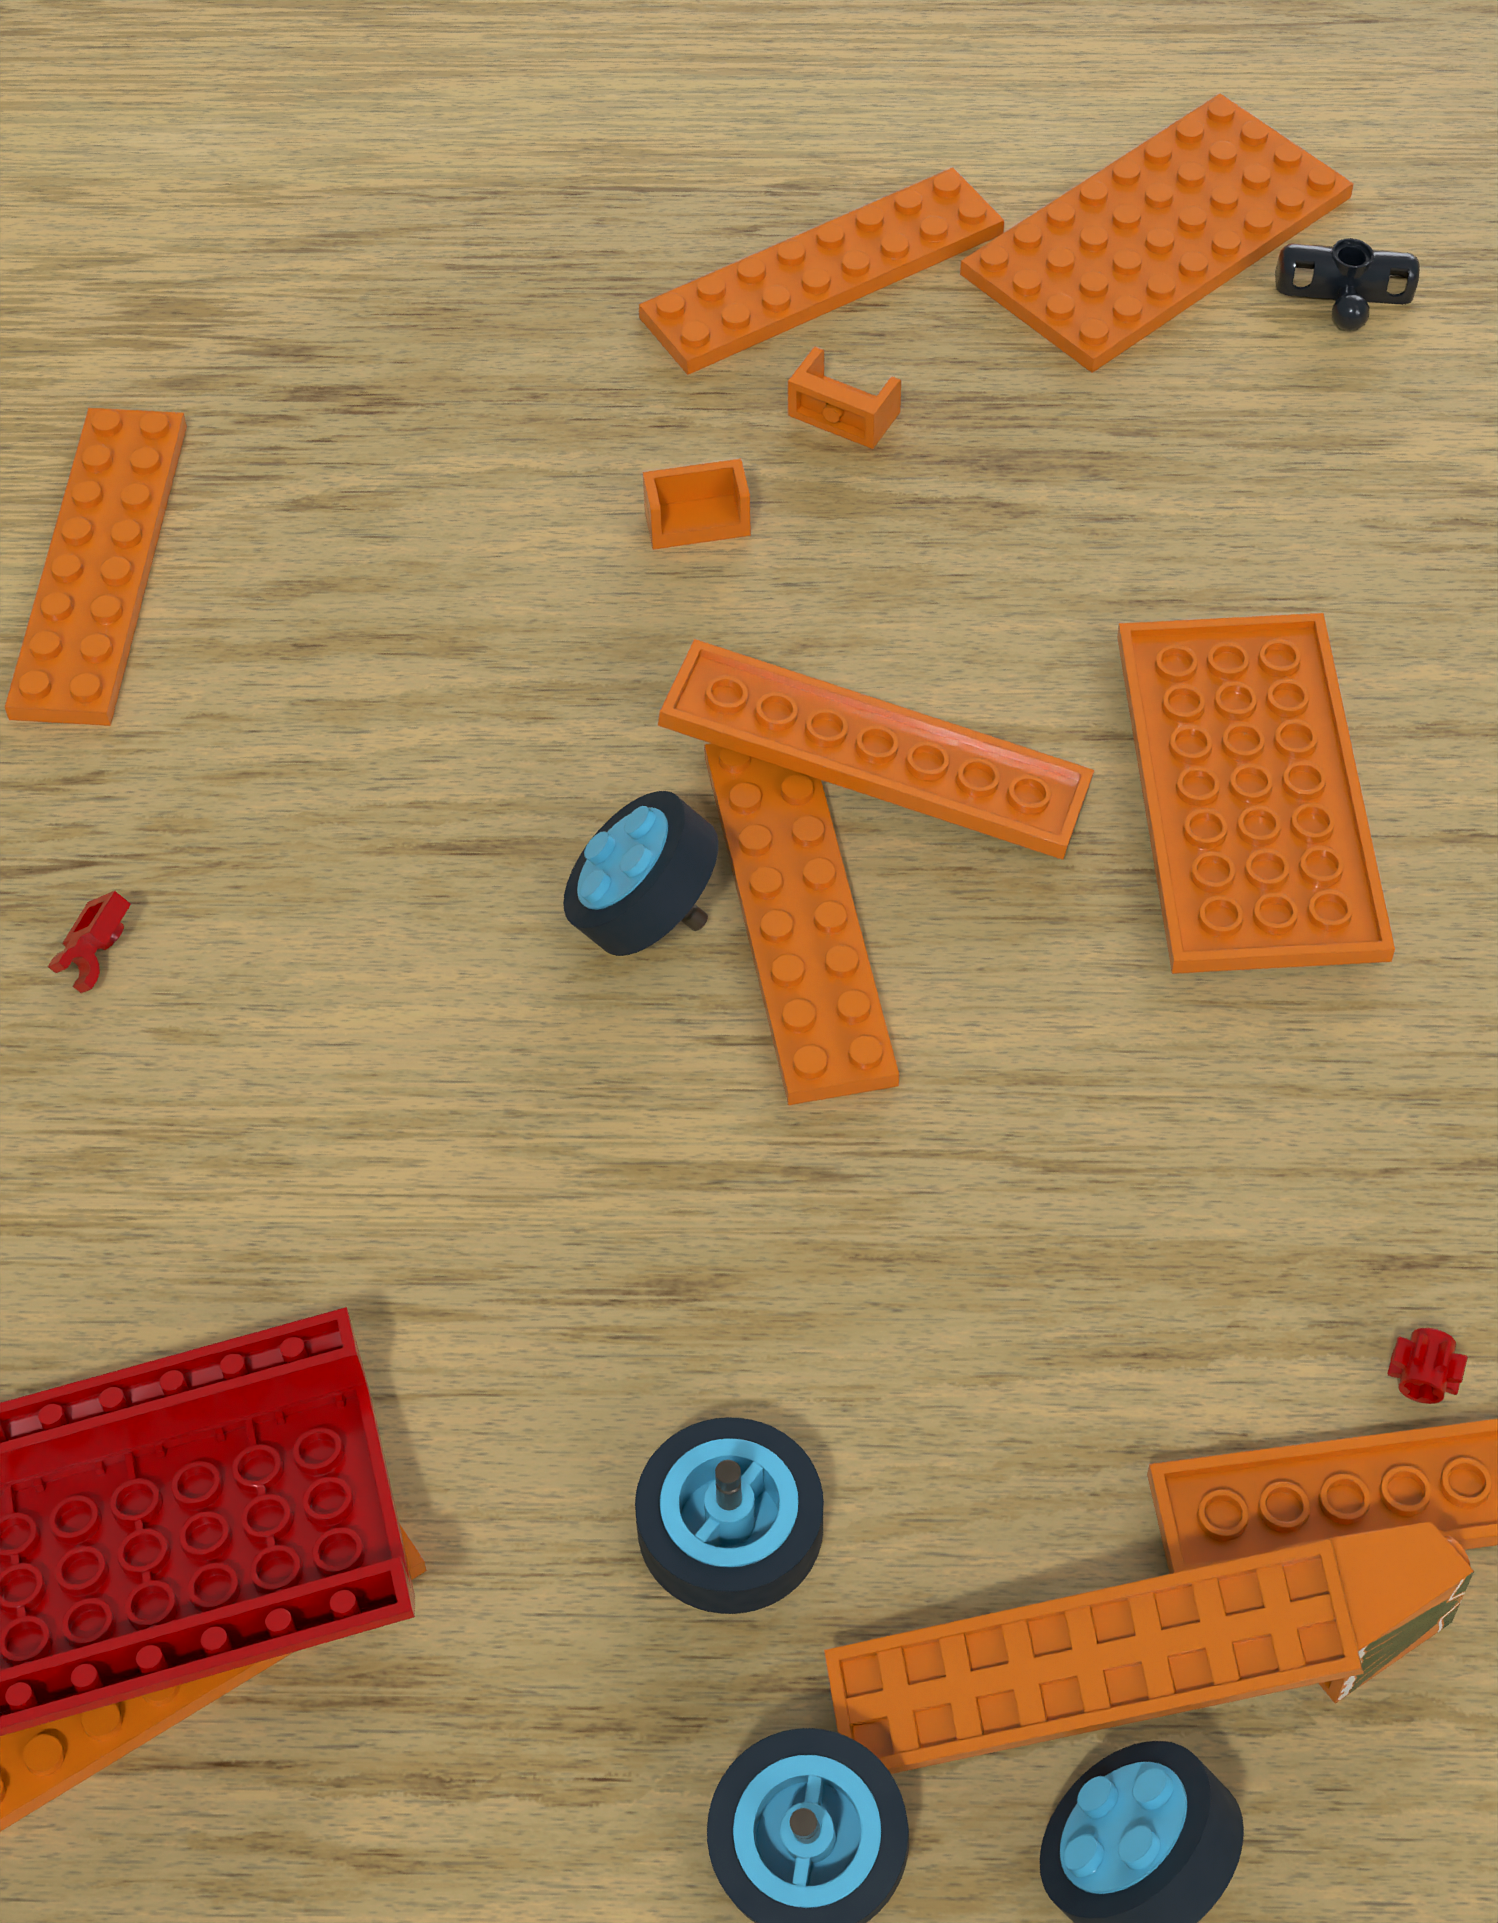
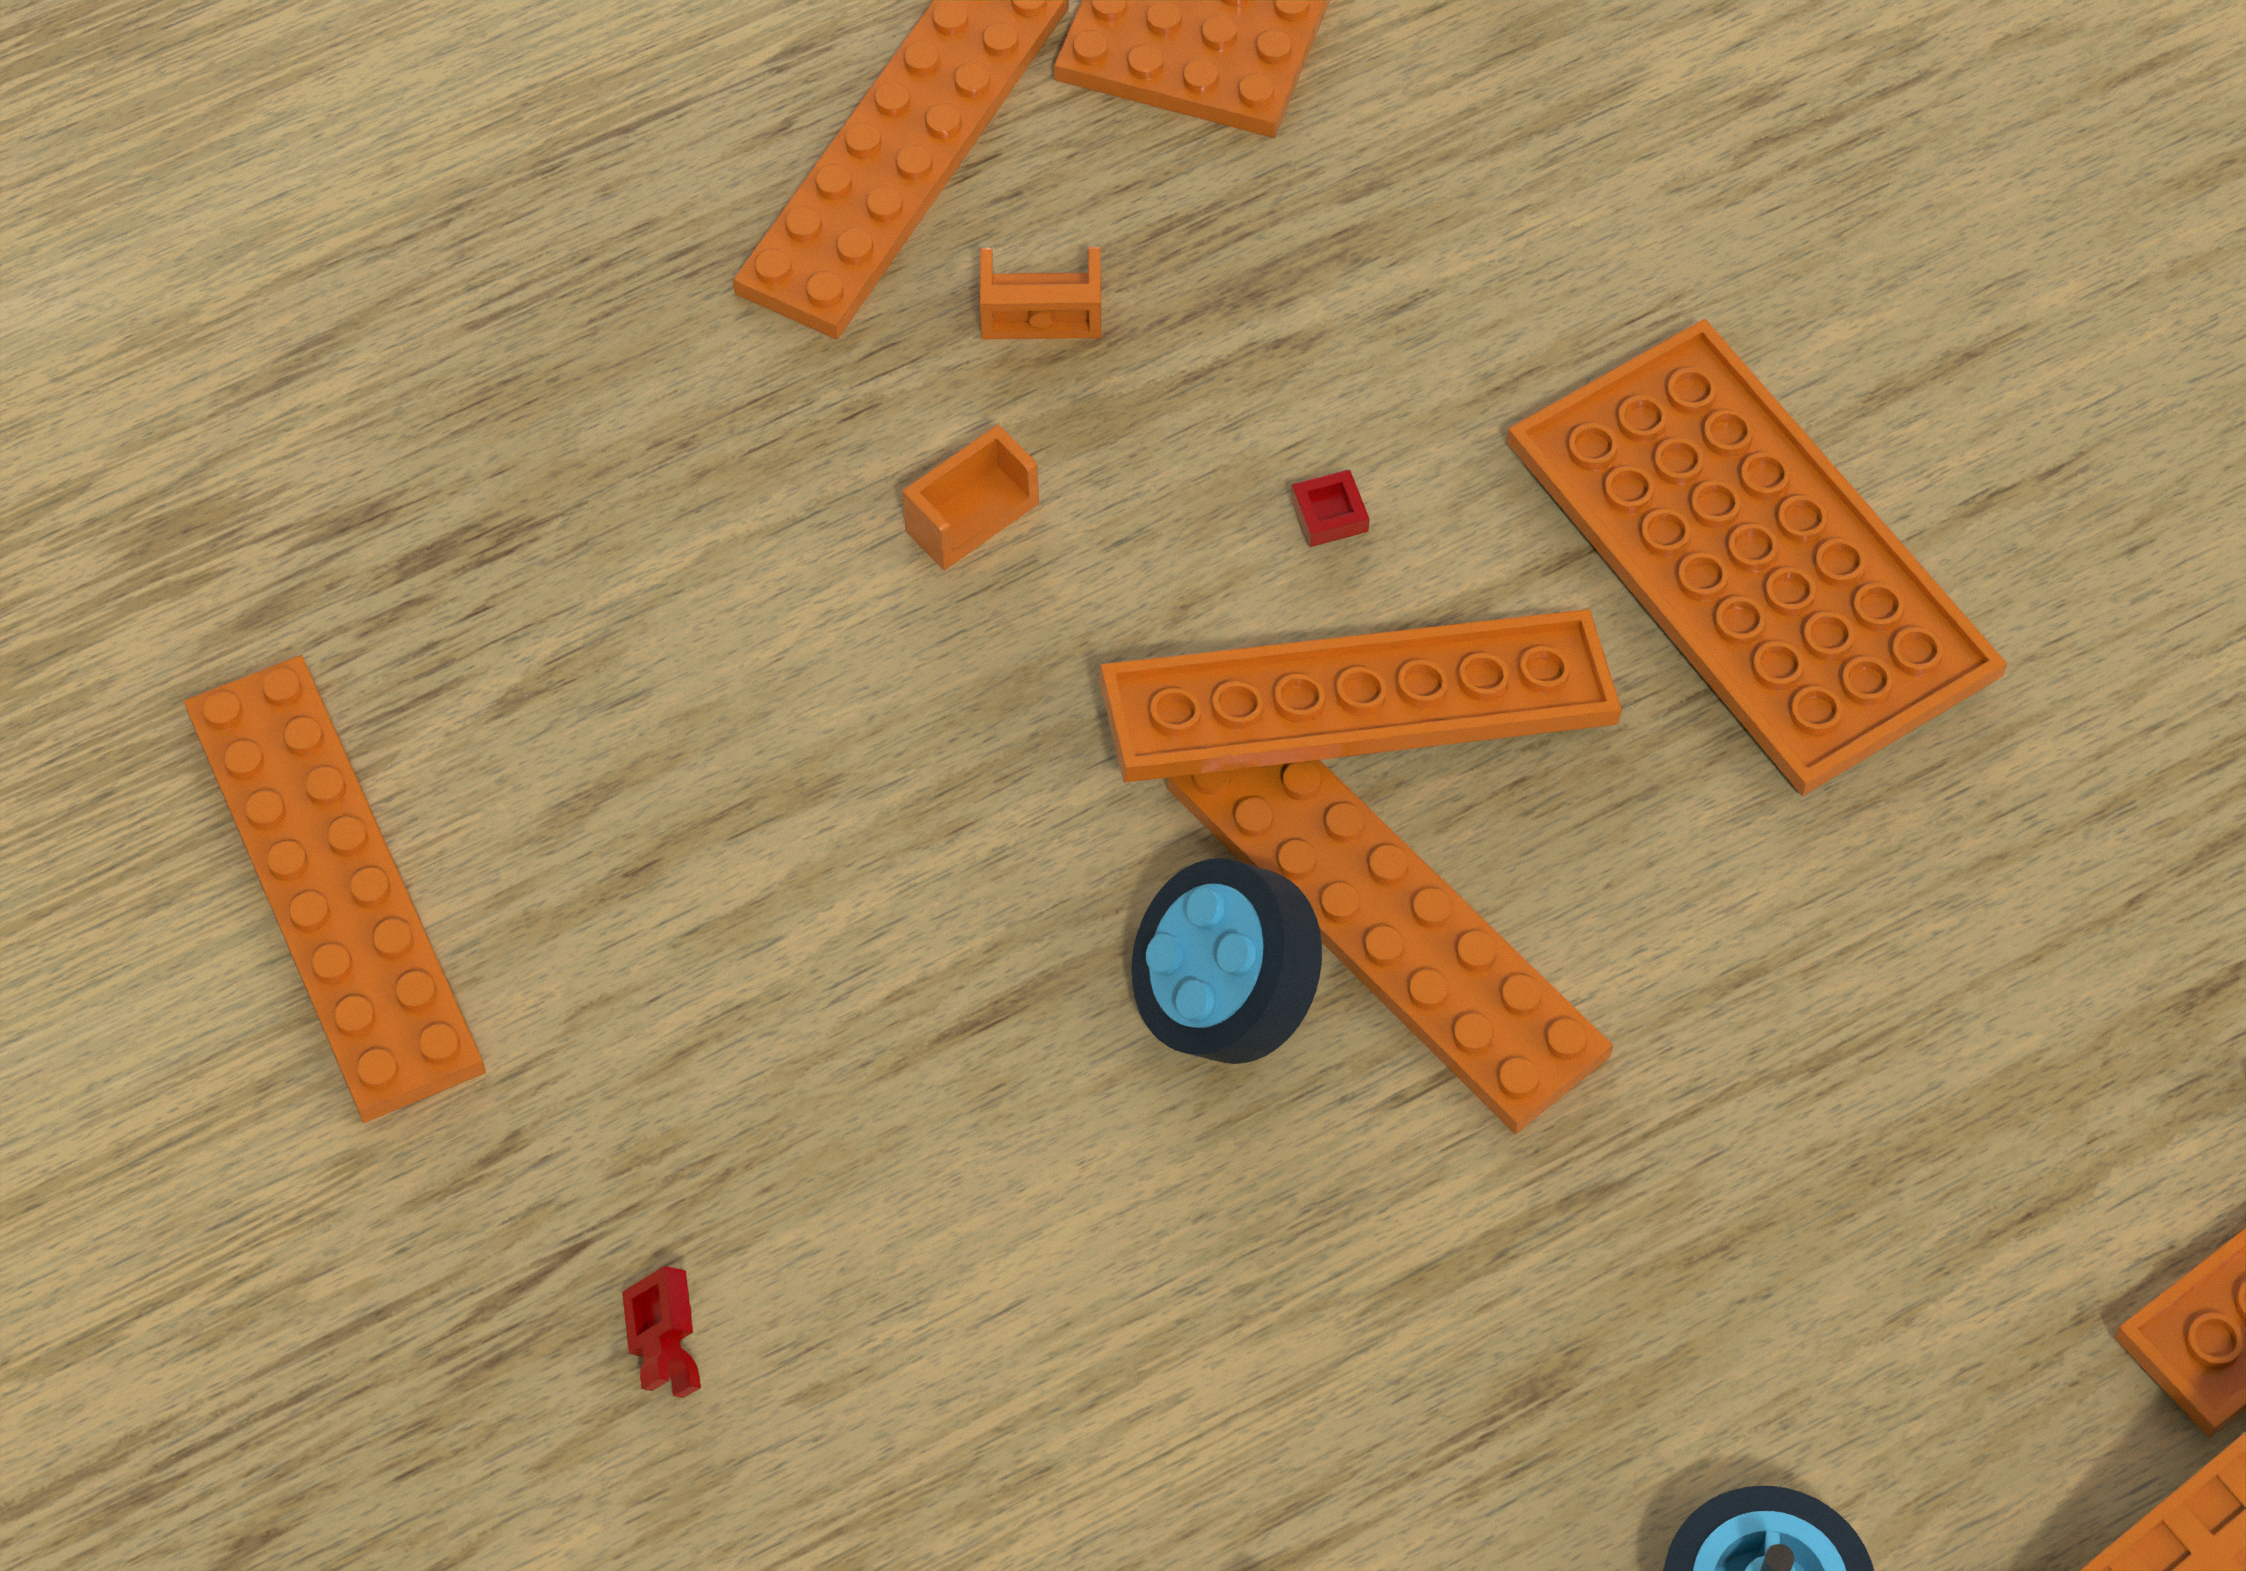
camera: 30 degrees left, 5 degrees up
(951, 622) = (1330, 508): none -> red plate

